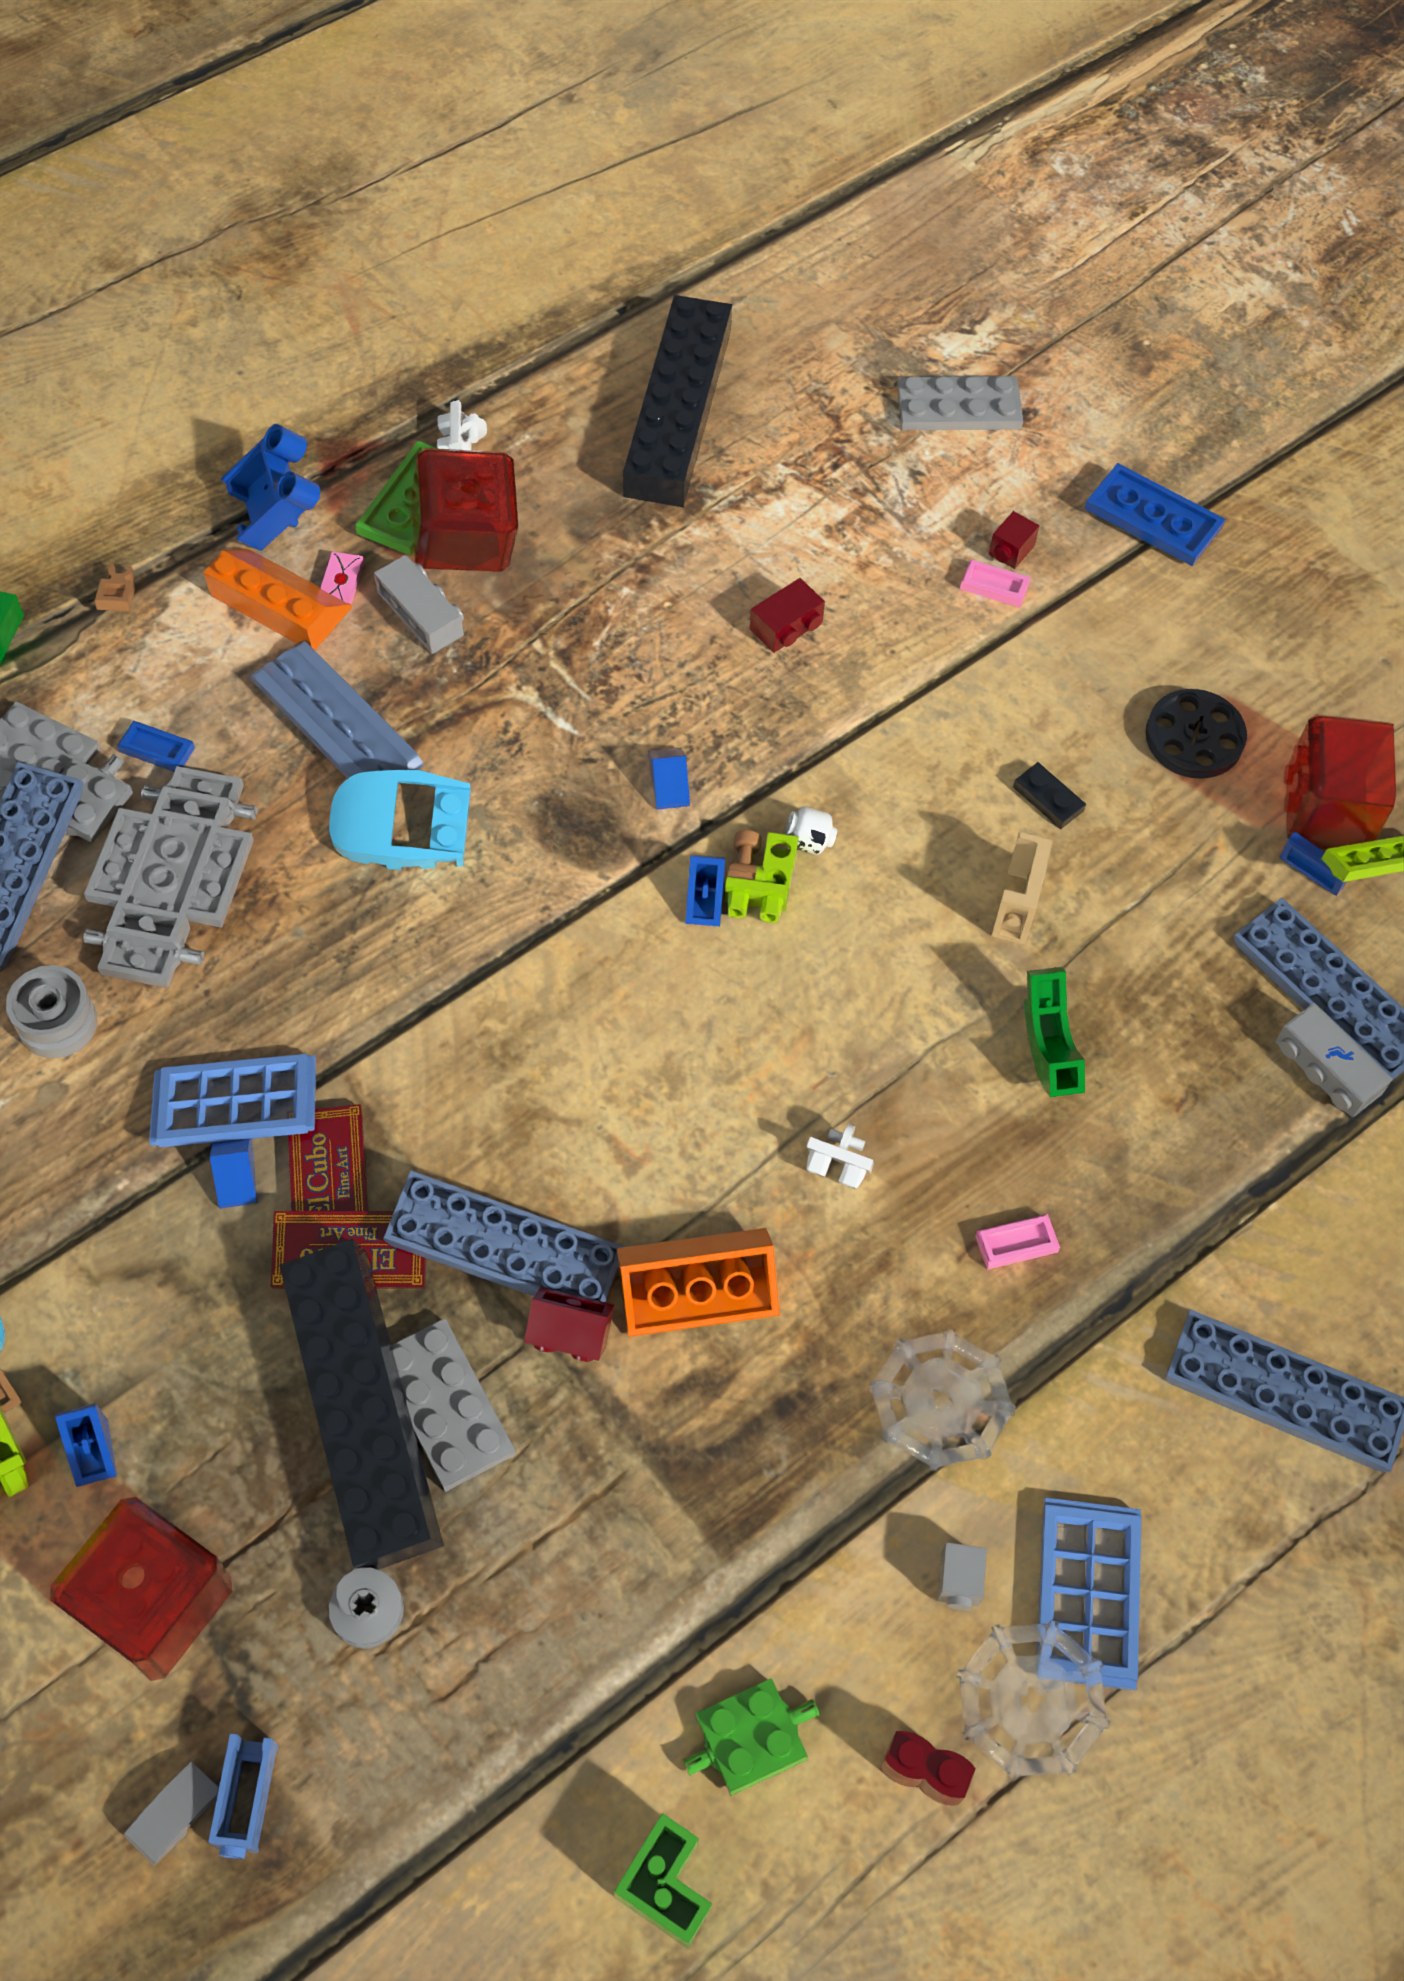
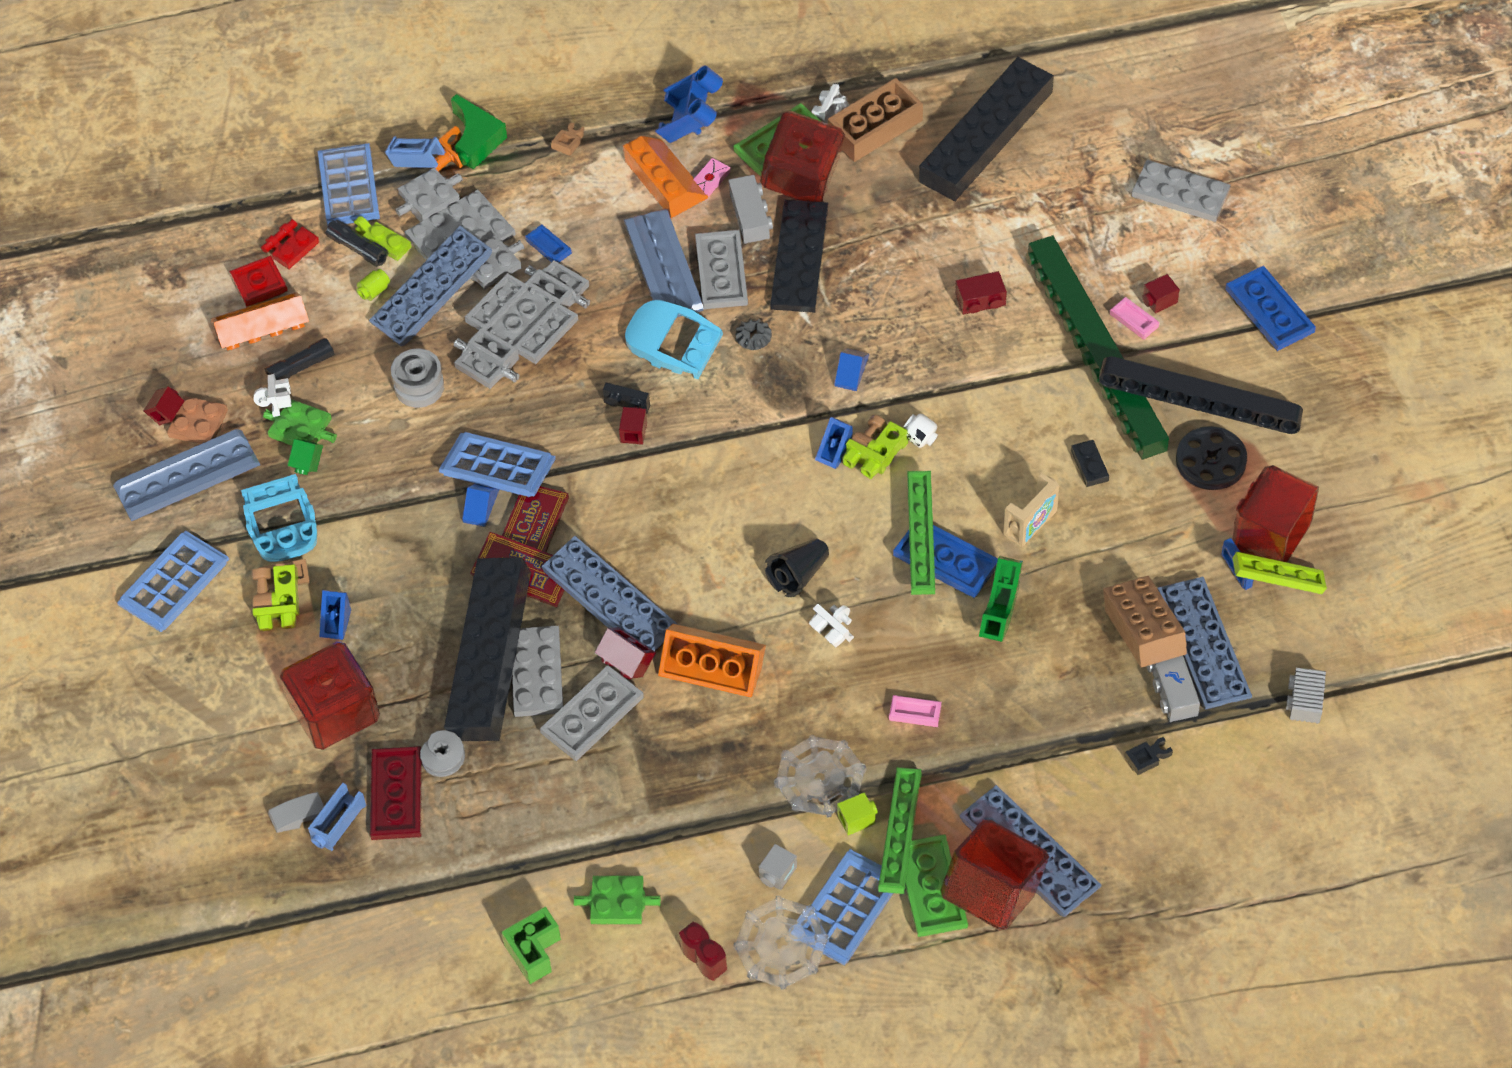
camera: 30 degrees right, 5 degrees down
(319, 1705) = (396, 793): none -> dark red tile
(378, 930) = (625, 397): none -> black plate
(408, 967) = (633, 425): none -> dark red brick
(422, 700) = (721, 269): none -> light grey plate
(518, 647) = (799, 256): none -> black plate
(523, 781) = (757, 341): none -> dark grey gear
(535, 425) = (877, 118): none -> medium nougat brick
(562, 1440) = (591, 713): none -> light grey plate
(747, 1093) = (795, 566): none -> black cone
(893, 977) = (921, 533): none -> bright green tile
(940, 998) = (955, 561): none -> blue plate
(977, 637) = (1095, 344): none -> dark green brick
(1027, 1437) = (856, 813): none -> lime brick
(1106, 1442) = (900, 830): none -> bright green tile
(1144, 654) = (1201, 395): none -> black beam
(1190, 1506) = (924, 880): none -> bright green plate
(1260, 990) = (1145, 621): none -> medium nougat brick
(1291, 1460) = (994, 874): none -> clear red plate
(1359, 1181) = (1147, 757): none -> black plate

